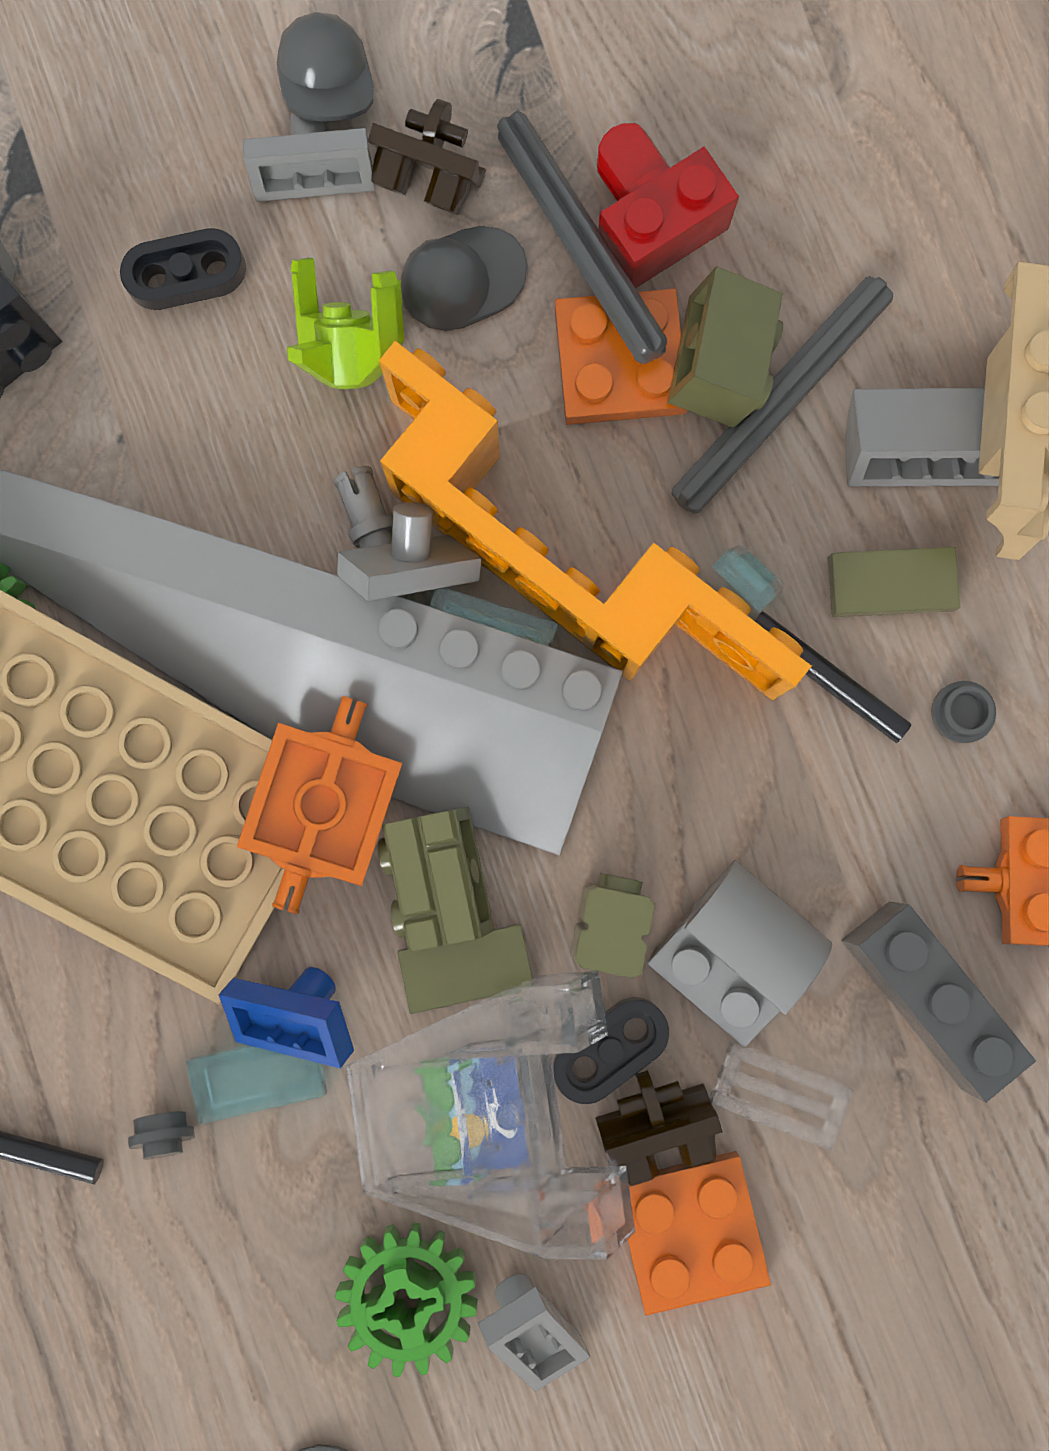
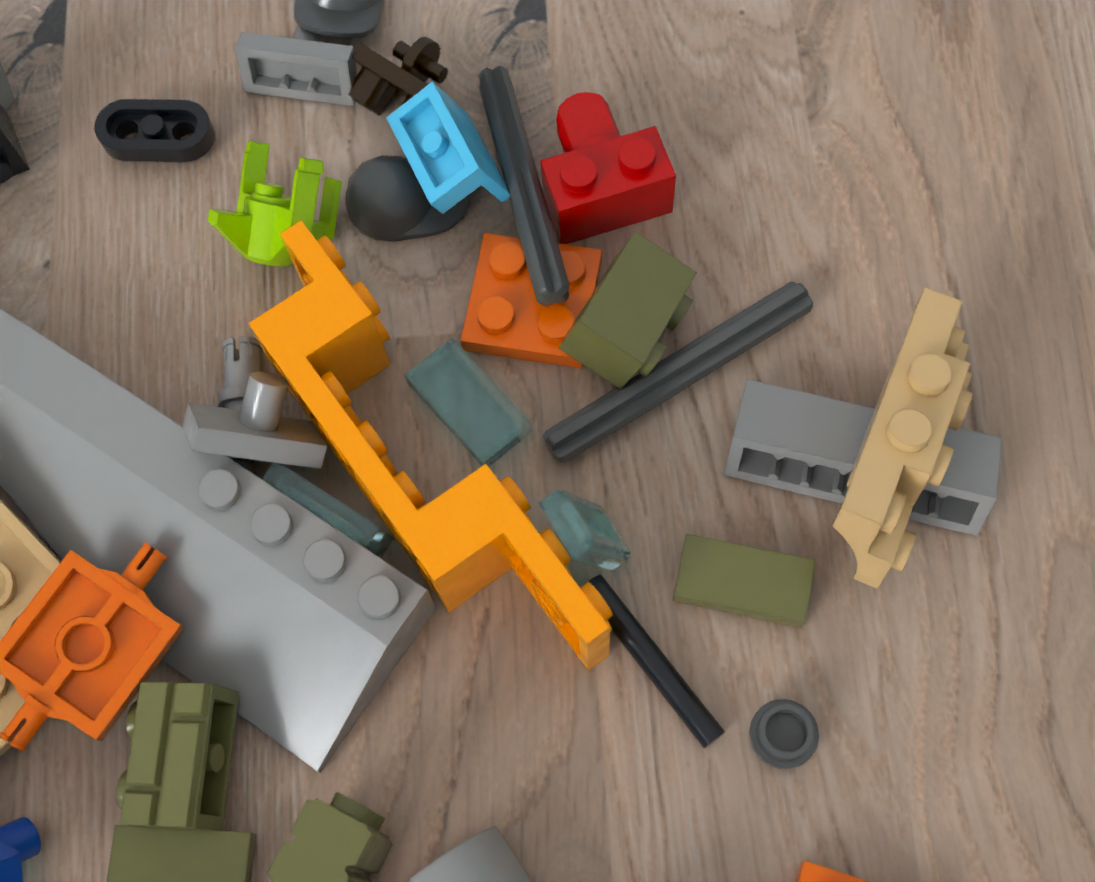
camera: 20 degrees right, 15 degrees down
(497, 222) = (445, 149): none -> medium azure panel
(589, 476) = (469, 403): none -> clear light blue tile

